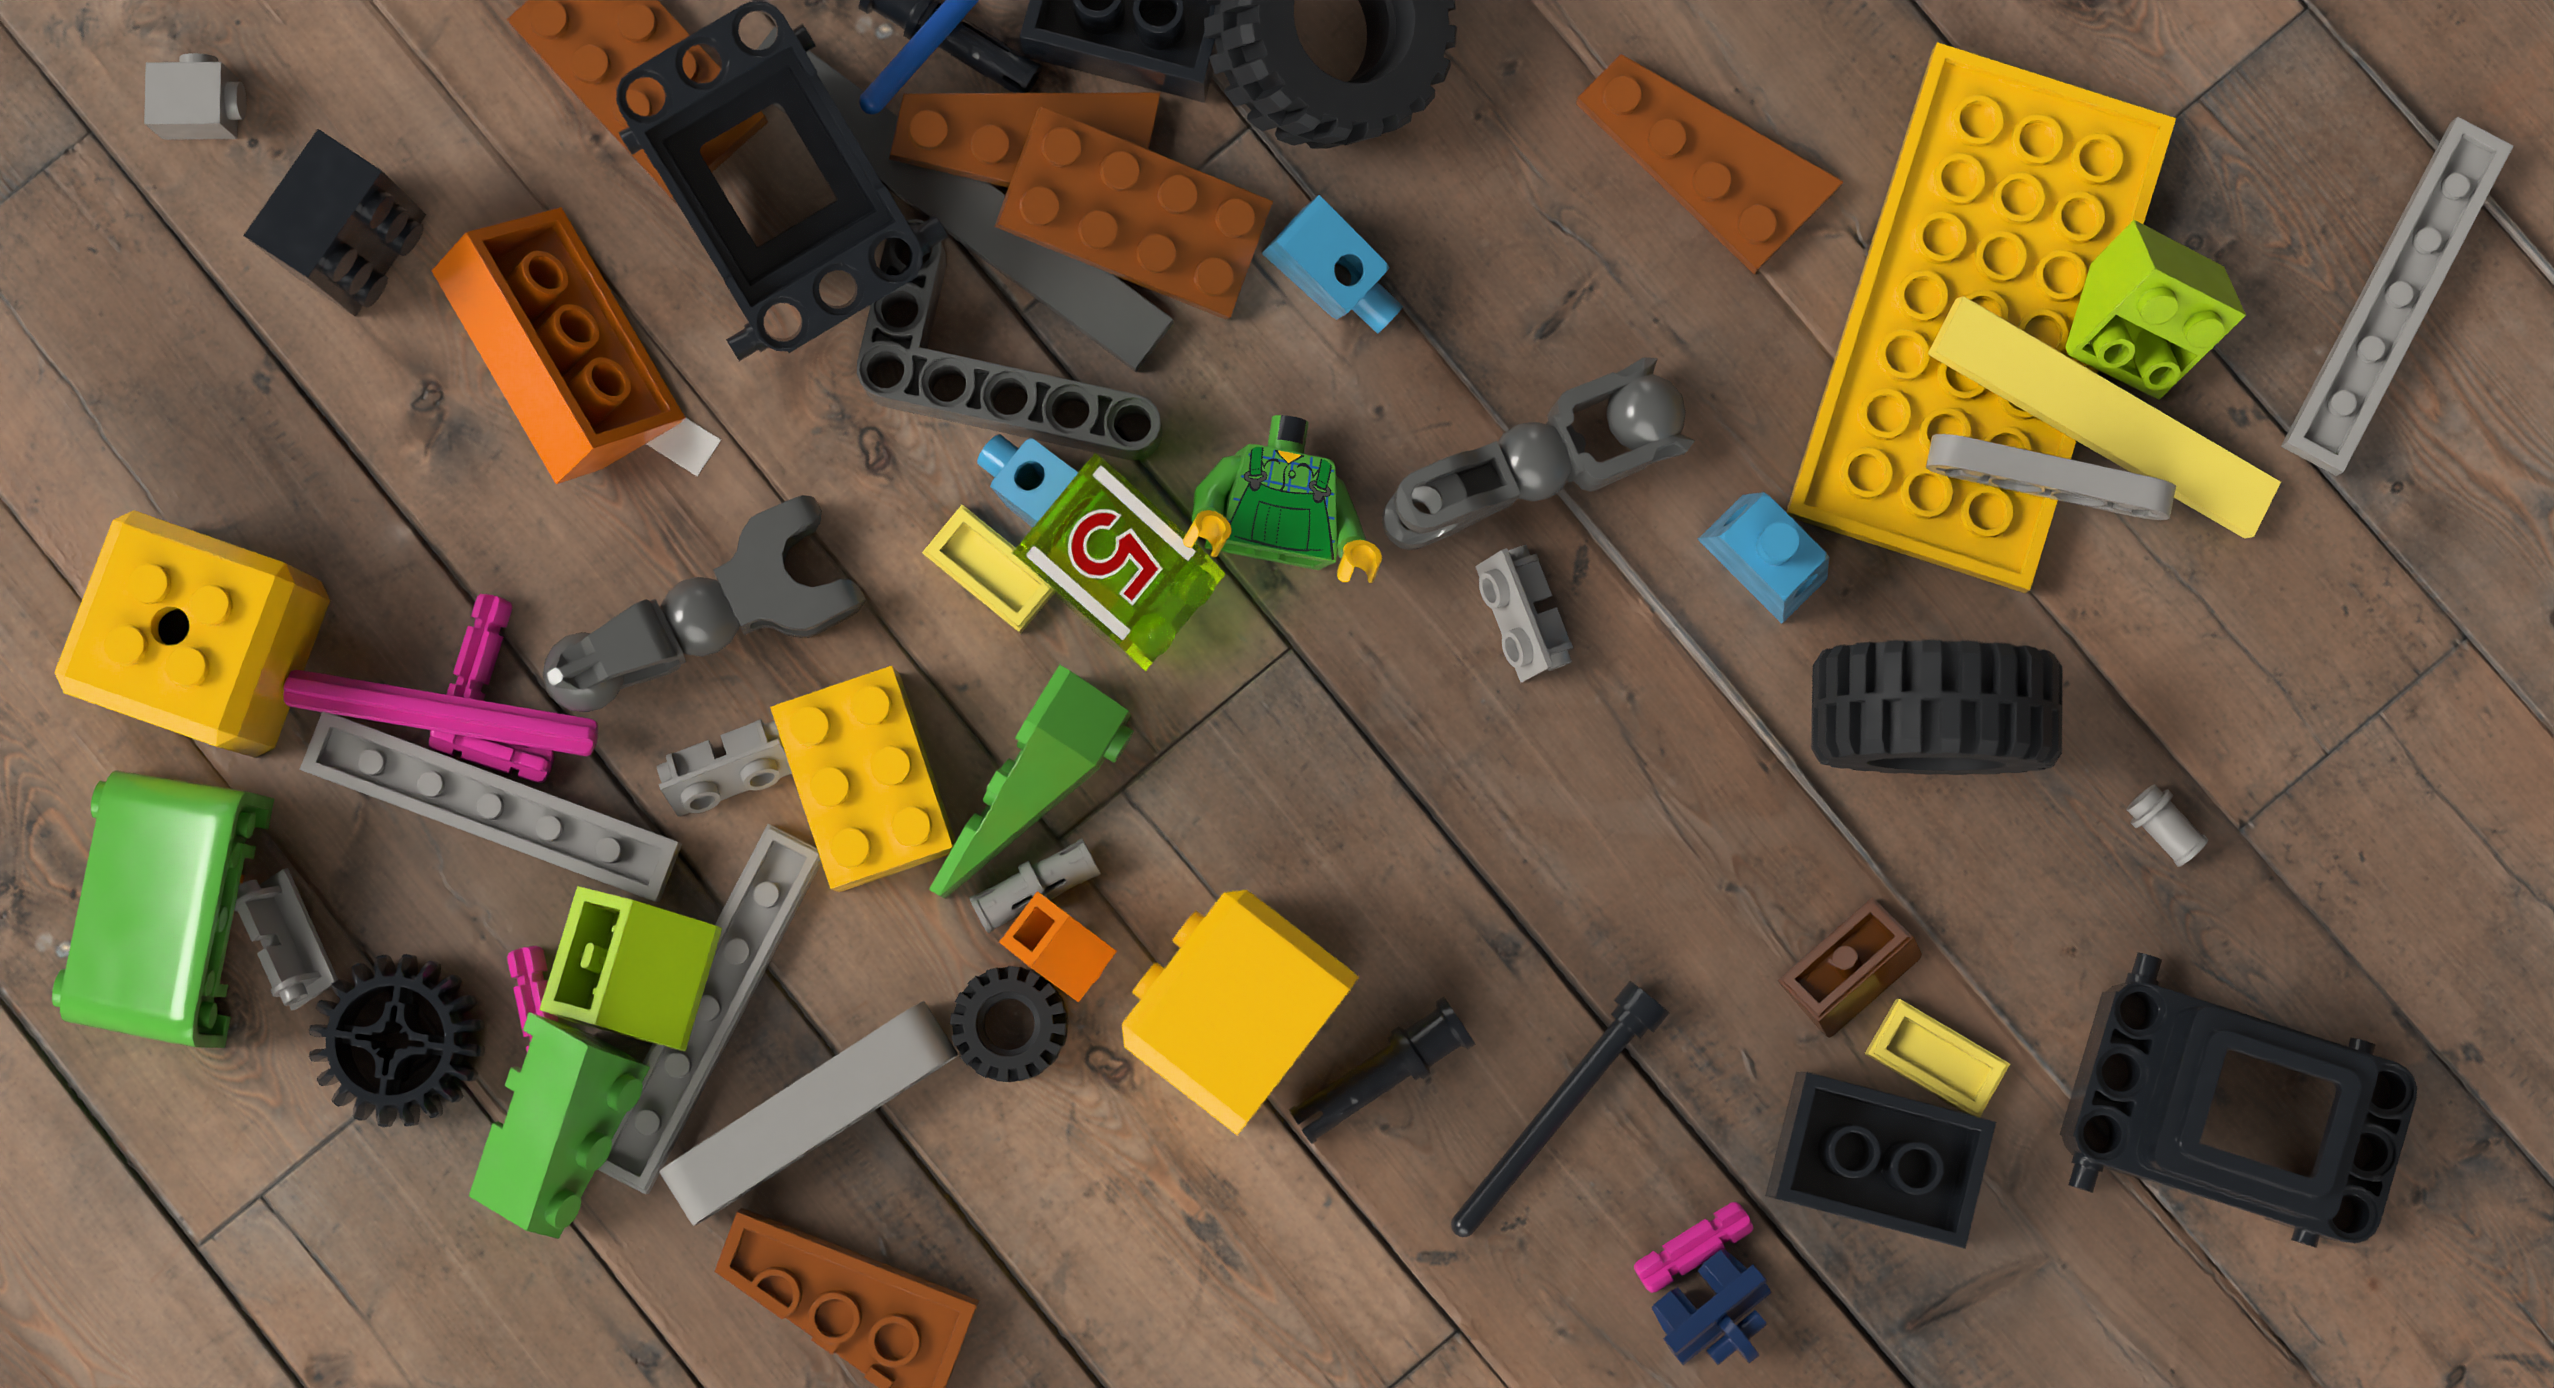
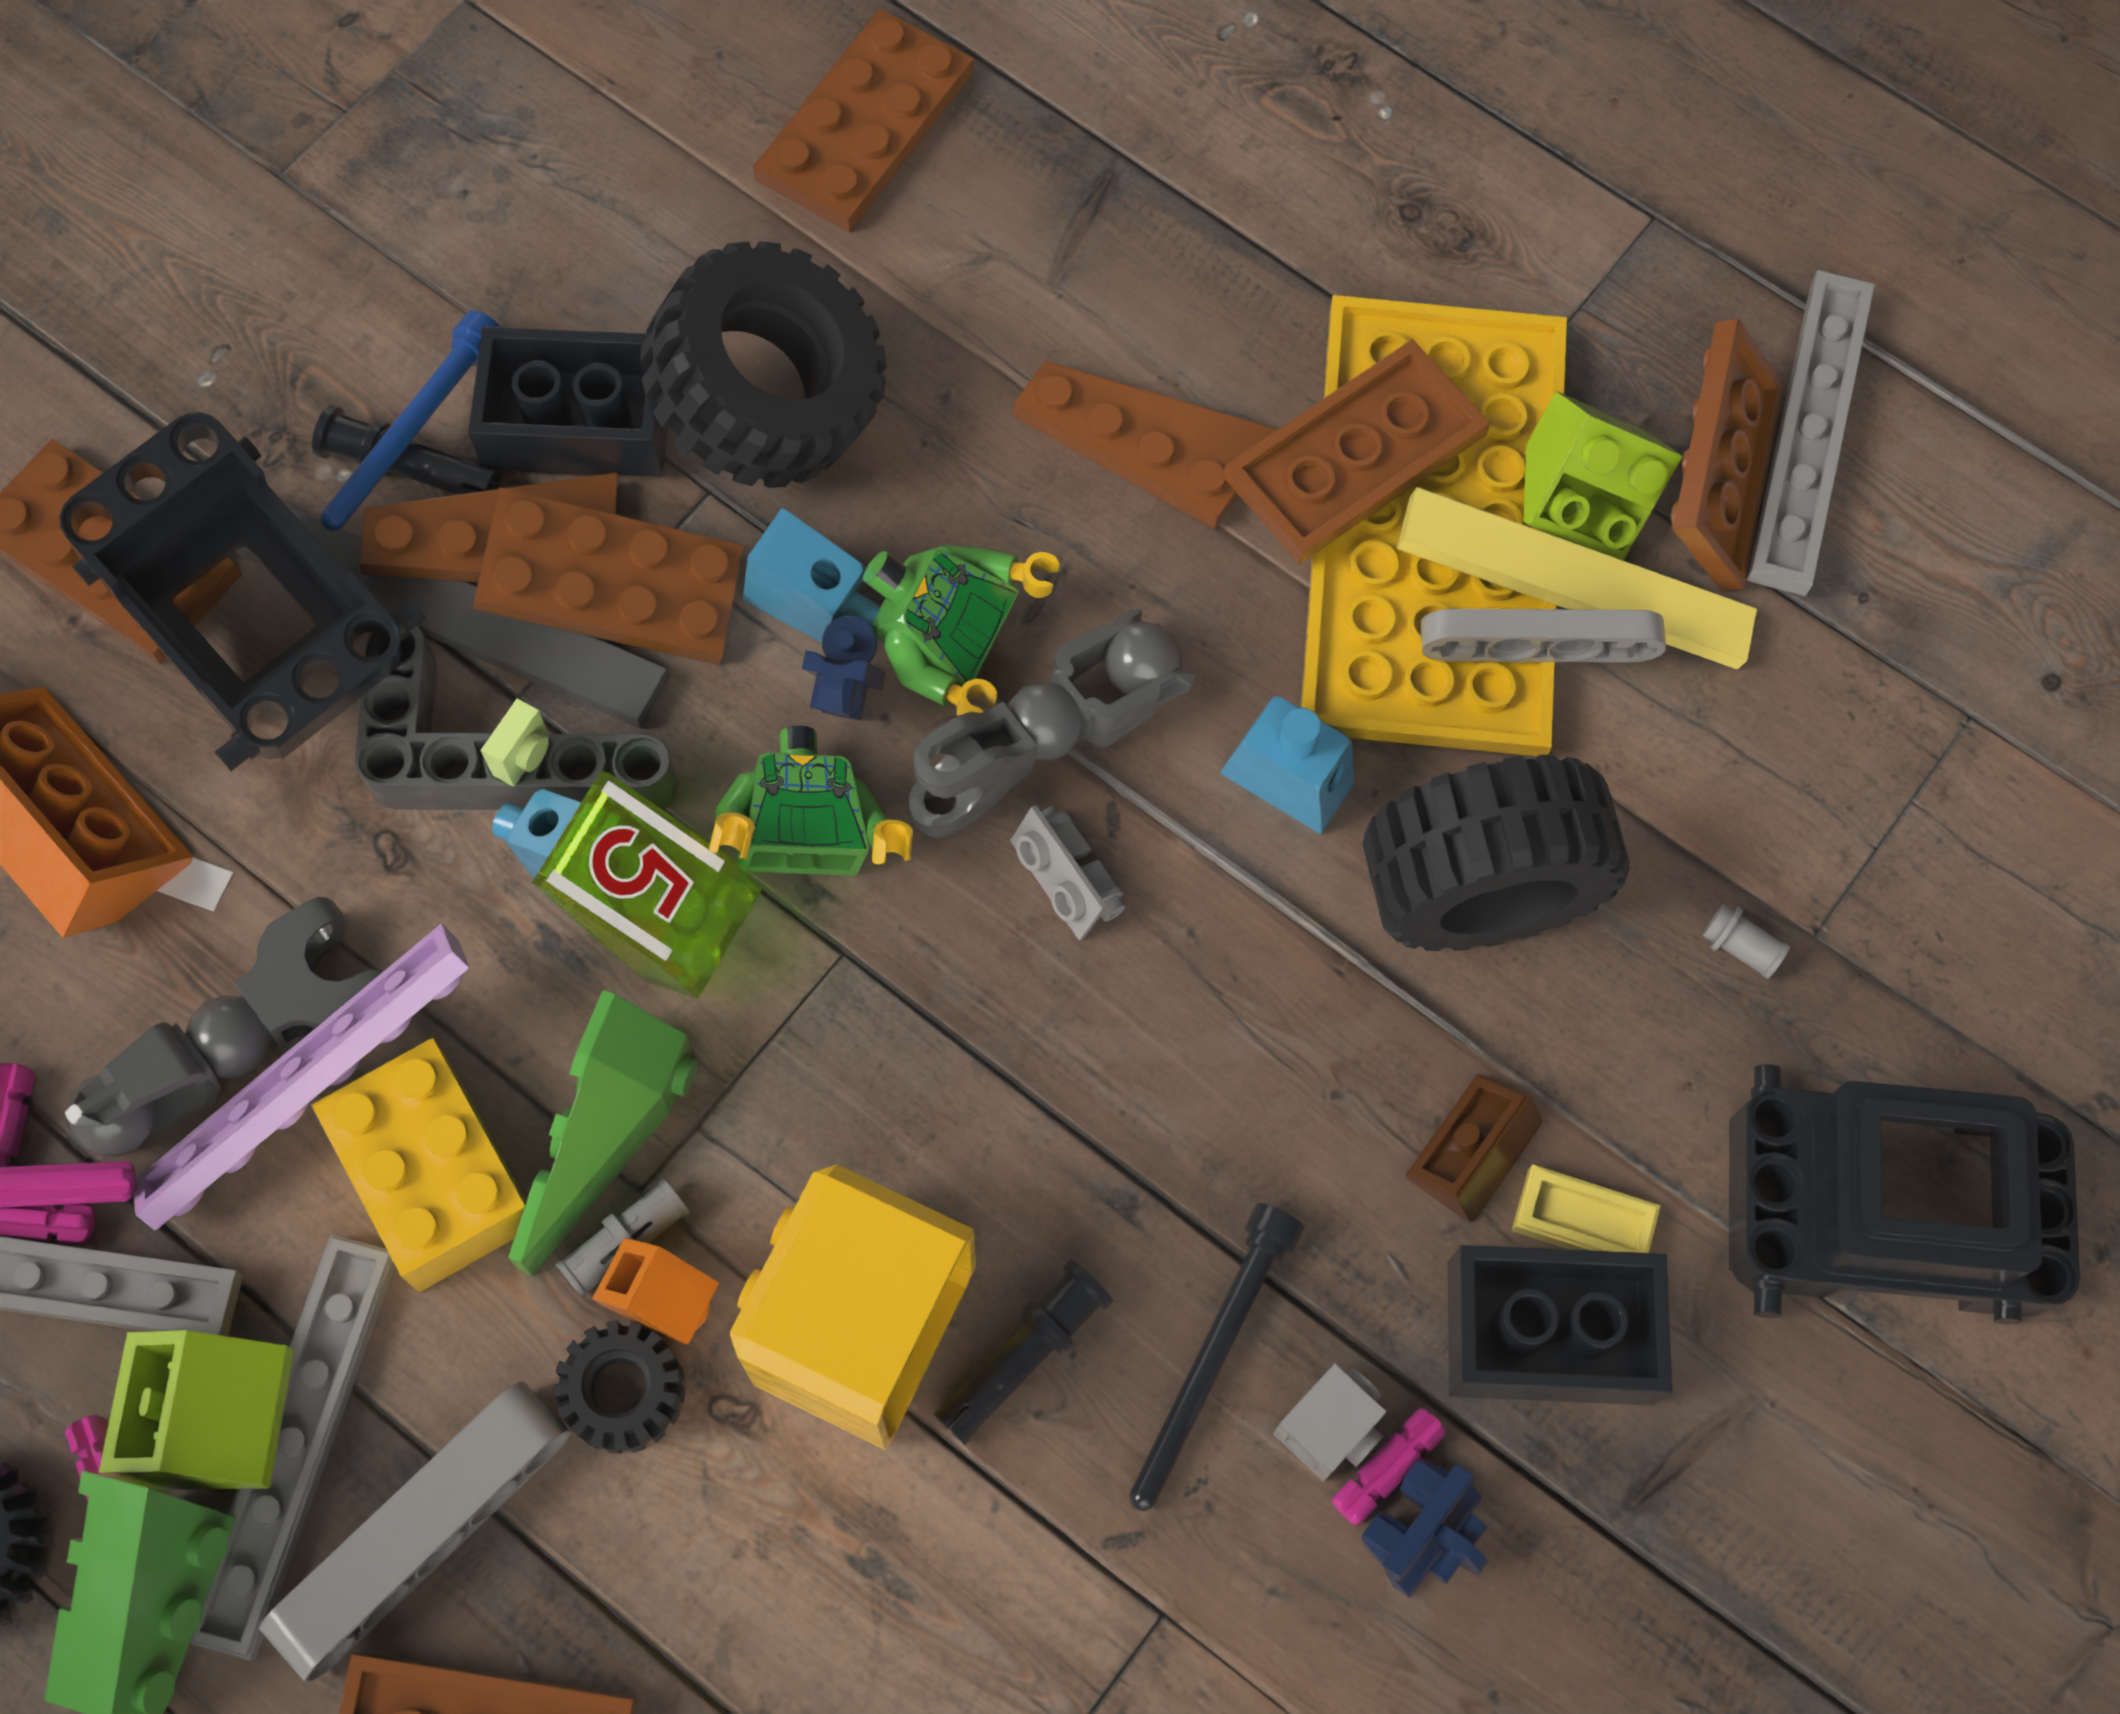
camera: 15 degrees left, 15 degrees down
(698, 780) = (258, 1203): light grey hinge -> none
(765, 674) = (296, 1078): none -> lavender plate
(987, 568) = (526, 938): light yellow tile -> none
(1017, 389) = (516, 743): none -> yellowish green plate
(1348, 365) = (846, 669): none -> dark blue hips
(1459, 330) = (946, 614): none -> torso
(1652, 1198) = (1333, 1422): none -> light grey brick
(1915, 233) = (1355, 451): none -> dark orange plate
(2297, 315) = (1728, 455): none -> dark orange plate

